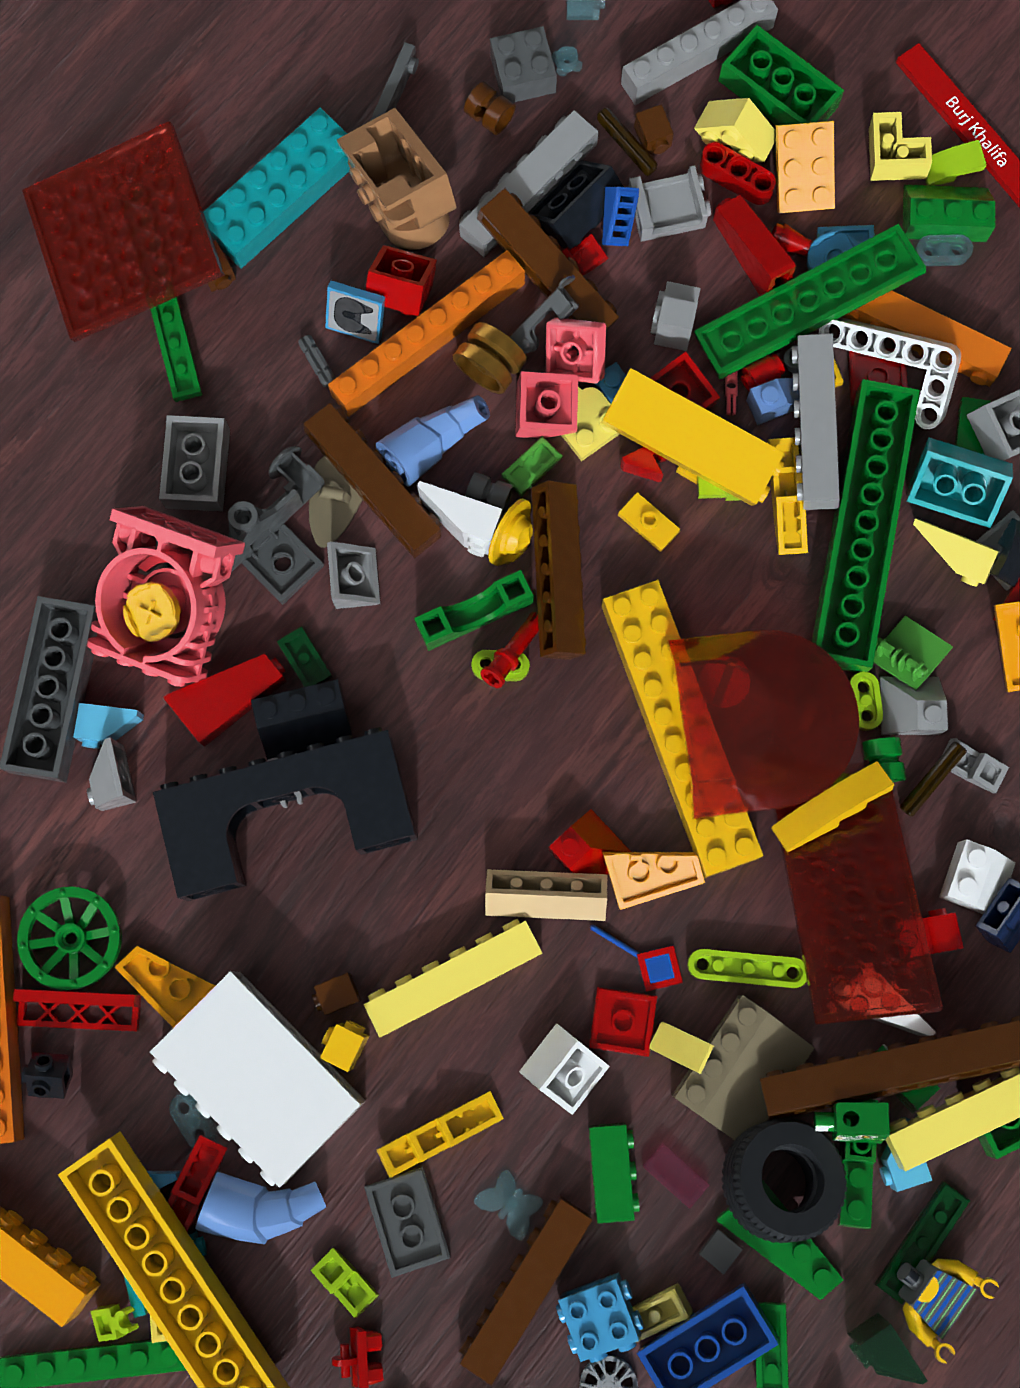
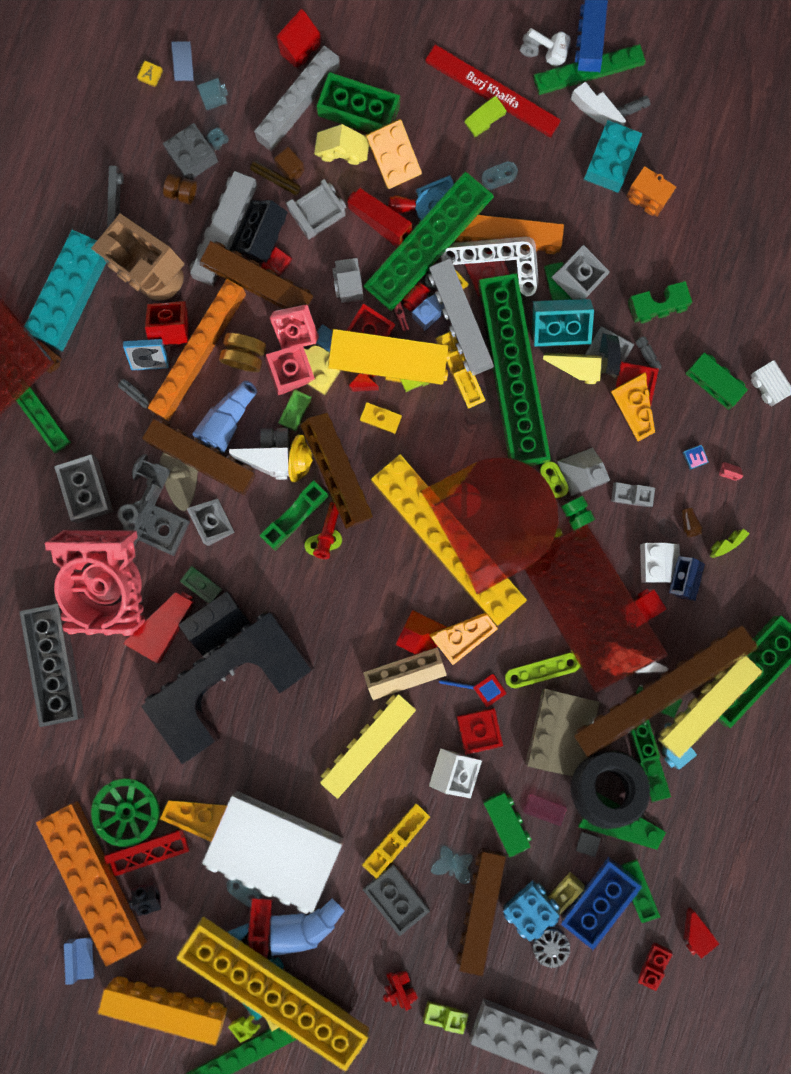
camera: 20 degrees left, 5 degrees up
(101, 722) = (92, 673): medium azure slope -> none
(111, 778) = (111, 705): light grey slope -> none
(151, 611) = (95, 594): yellow tile -> none
(336, 994) = (301, 782): reddish brown brick -> none
(344, 1045) = (318, 811): yellow brick -> none
(344, 1282) = (373, 949): lime slope -> none
(559, 301) = (272, 301): dark grey piece -> none
(611, 205) = (283, 231): blue slope -> none
(681, 1047) = (520, 734): light yellow slope -> none
(741, 185) = (359, 179): red beam -> none
(832, 806) = (557, 554): yellow slope -> none
(868, 1122) = (647, 736): green torso -> none
(881, 1348) = (702, 865): clear green slope -> none
(896, 156) = (446, 125): light yellow brick -> none
(910, 652) = (570, 439): bright green hinge -> none
(924, 1236) = (704, 792): dark green tile -> none
(933, 779) = (612, 512): dark brown axle -> none
(936, 1297) = (724, 820): torso -> none
(948, 211) = (493, 149): green slope -> none

